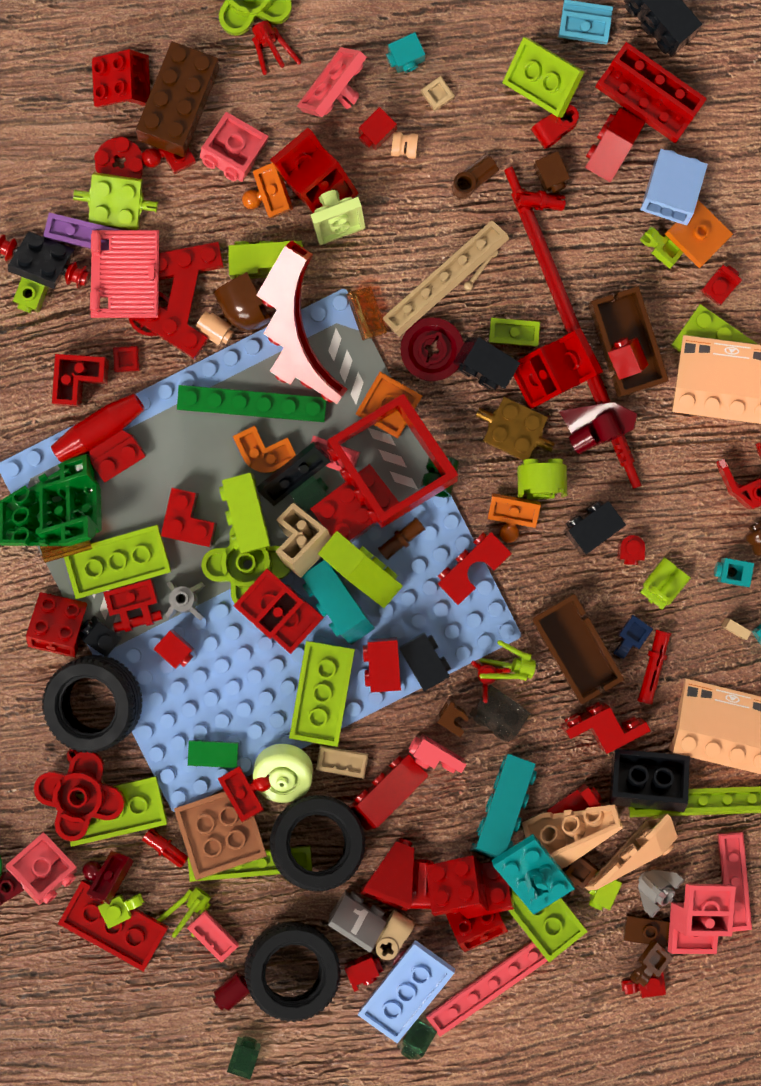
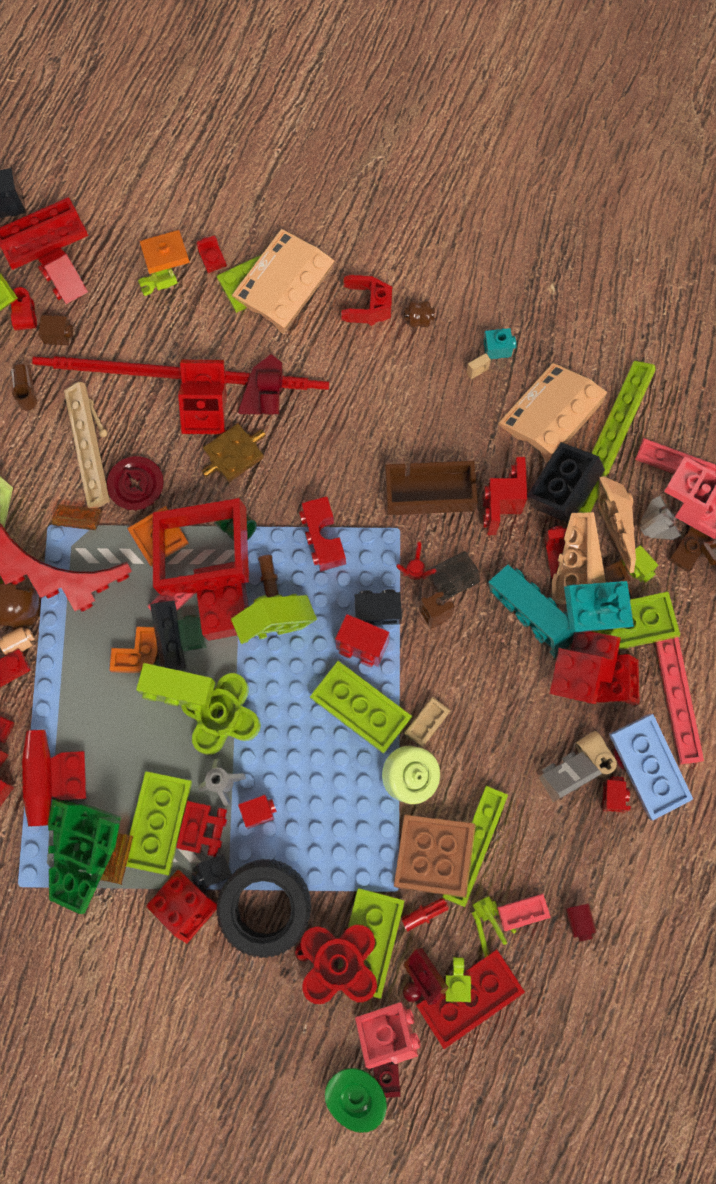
camera: 60 degrees left, 15 degrees down
(180, 520) = (156, 750): red brick -> none
(213, 753) = (364, 827): green tile -> none
(243, 794) = (410, 817): red plate -> none
(244, 1057) = (645, 941): clear green brick -> none
(251, 403) = (93, 643): green plate -> none
(278, 611) = (271, 704): red bracket -> none
(304, 540) = (223, 653): tan brick -> none
(316, 997) = (613, 833): black tyre -> none
(336, 602) = (292, 653): teal wedge -> none
(353, 848) = (485, 741): black tyre -> none
(388, 791) = (472, 696): red wedge -> none
(393, 877) = (548, 729): red slope -> none
(416, 1040) = (699, 781): clear green bracket -> none
(420, 887) = (570, 712): red piece -> none
(429, 753) = (456, 641): coral plate -> none
(486, 363) = (167, 443): black brick -> none
(513, 512) = (296, 484): orange plate -> none
(514, 332) = (158, 416): lime plate -> none
(522, 667) = (425, 535): lime plant -> none
(540, 200) = (70, 347): red pin -> none
(542, 479) = (282, 447): lime brick -> none
(593, 527) = (340, 427): black brick -> none
(627, 357) = (223, 336): red brick -> none
(629, 319) = (213, 335): reddish brown piece -> none
(631, 549) = (375, 412): red plate -> none
(633, 634) = (443, 442): dark blue plate -> none
(654, 666) = (473, 437): red pin -> none
(664, 584) = (415, 401): lime piece -> none
(674, 186) = (118, 249): light blue brick -> none
(742, 574) = (433, 340): teal brick -> none

